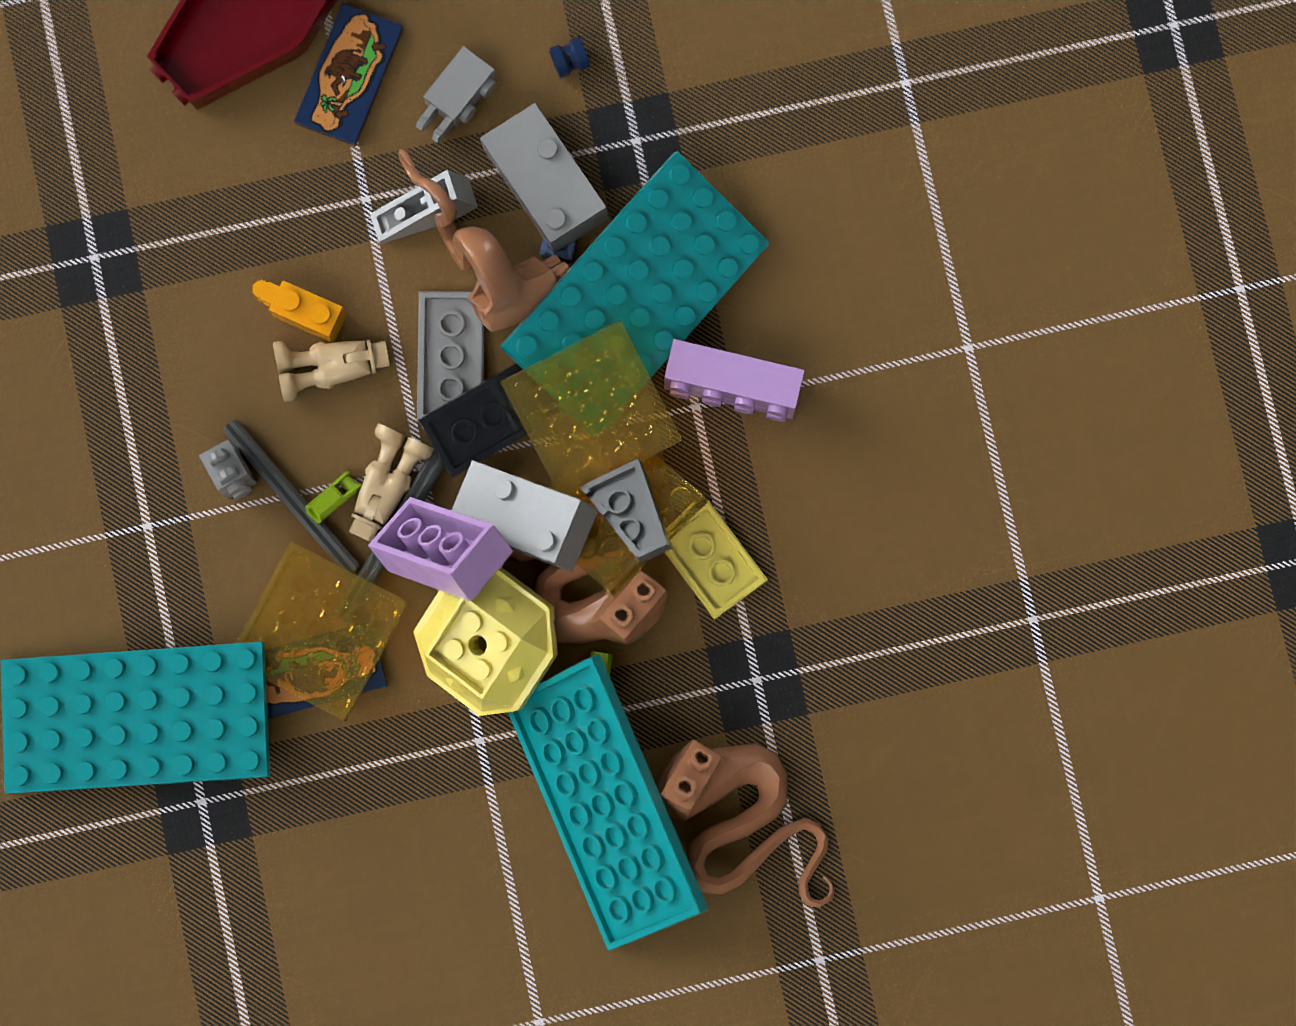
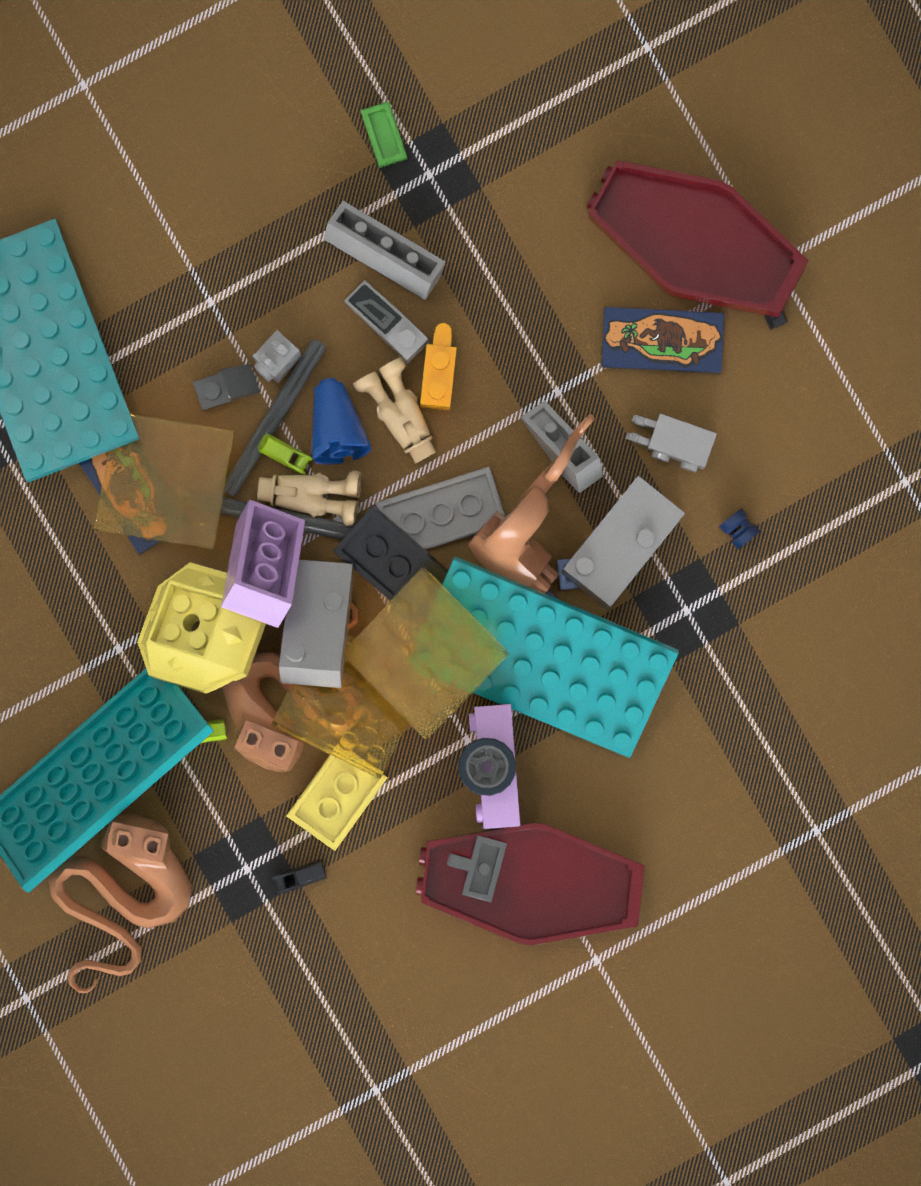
camera: 70 degrees right, 5 degrees up
(35, 289) = (384, 134): none -> bright green tile
(155, 324) = (384, 250): none -> light grey brick
(231, 347) = (387, 321): none -> slope
(242, 537) = (226, 386): none -> dark grey slope
(322, 432) = (336, 425): none -> blue cone
(631, 509) = (350, 715): wing -> none
(742, 368) = (503, 766): none -> wheel
(783, 621) = (303, 875): none -> black bar
(835, 426) = (481, 868): none -> dark grey plate
(867, 384) = (545, 889): none -> dark red container

